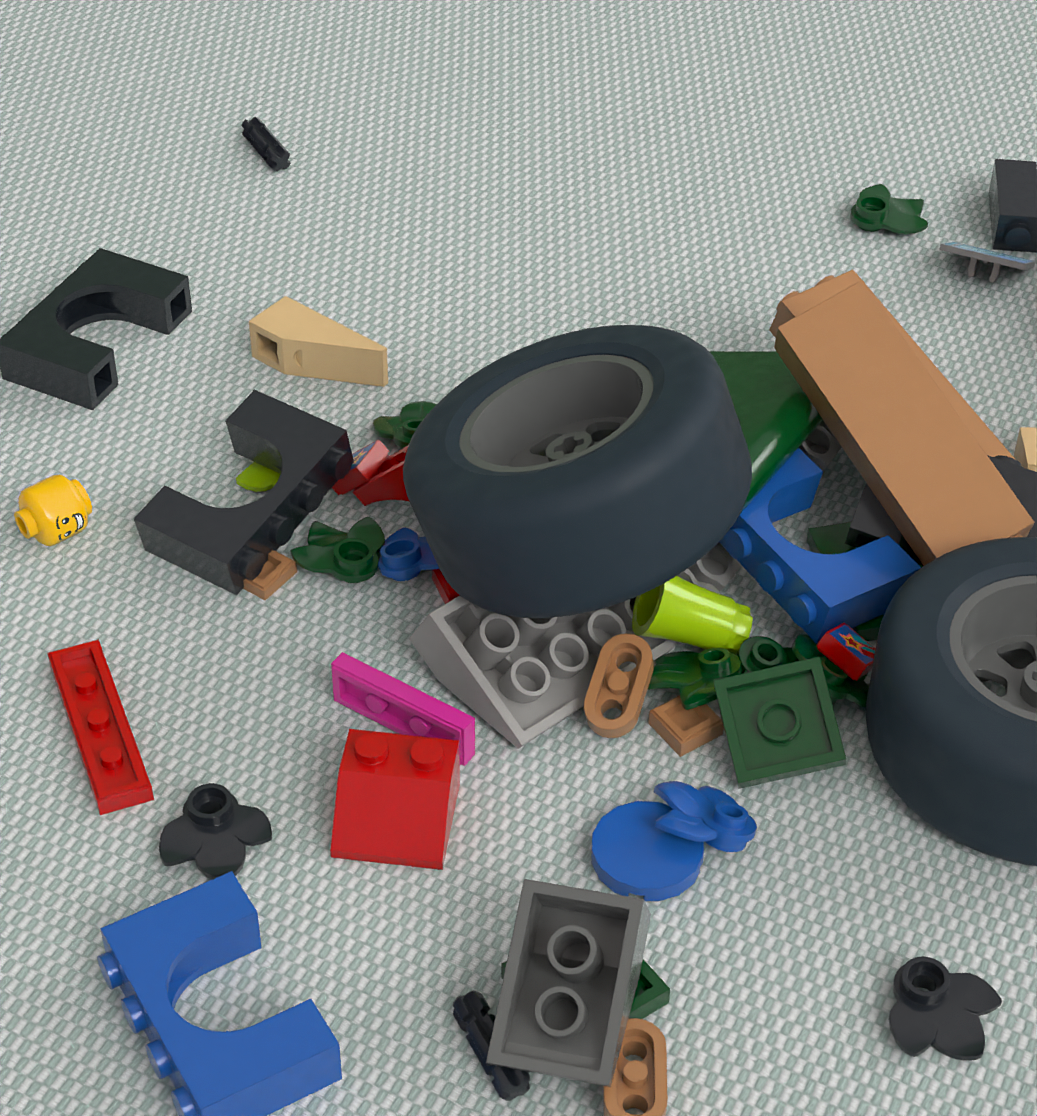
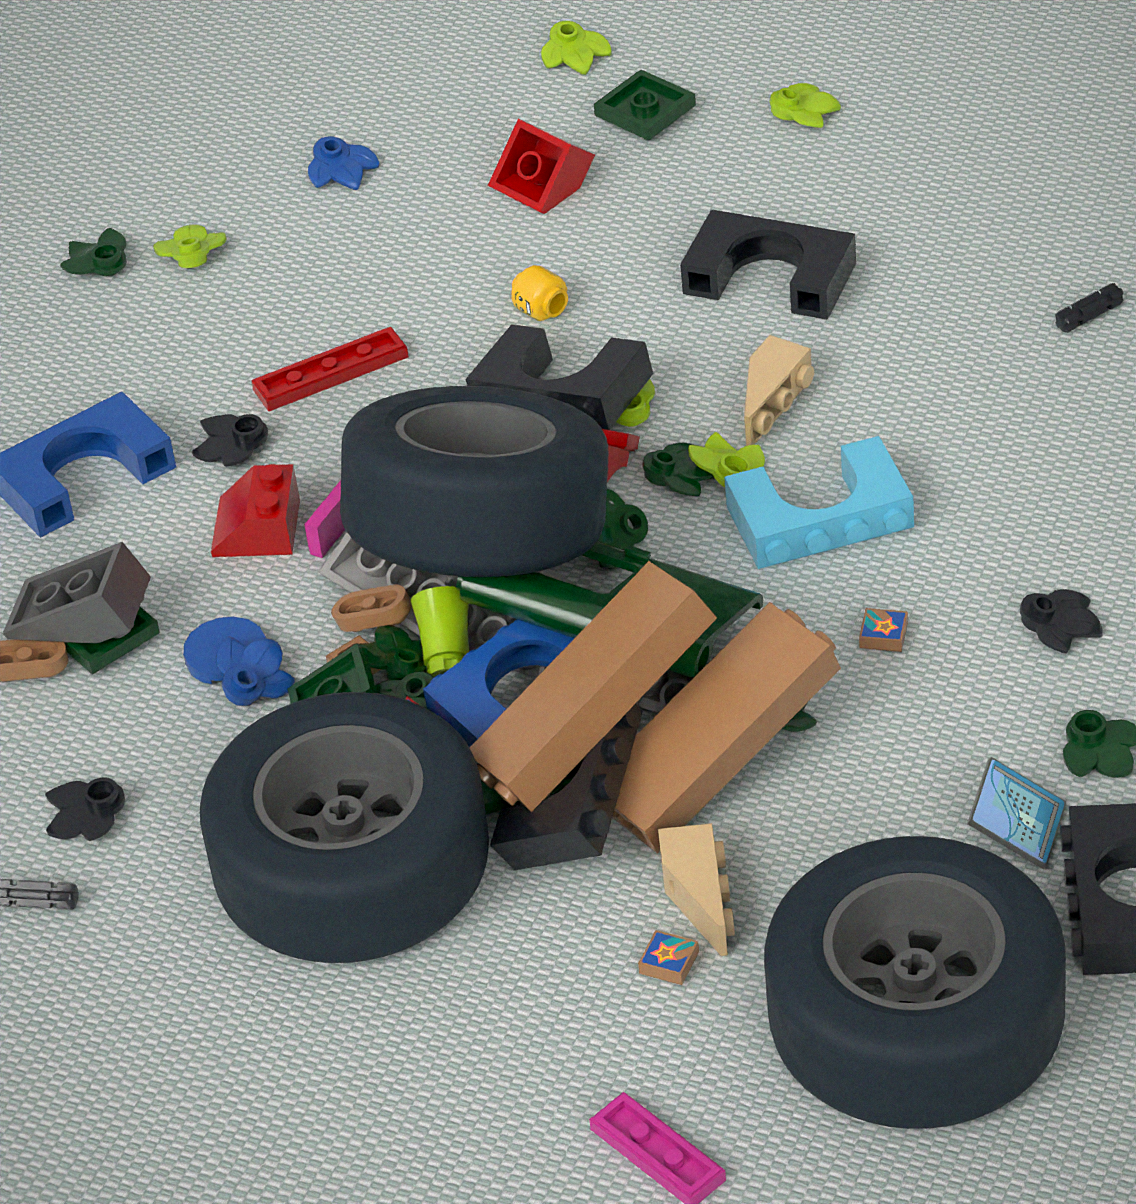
camera: 90 degrees right, 0 degrees up
(421, 388) = (724, 460): none -> lime plate
(510, 291) = (782, 532): none -> medium azure arch
(709, 317) = (883, 629): none -> tile
(715, 212) = (1059, 618): none -> black plate

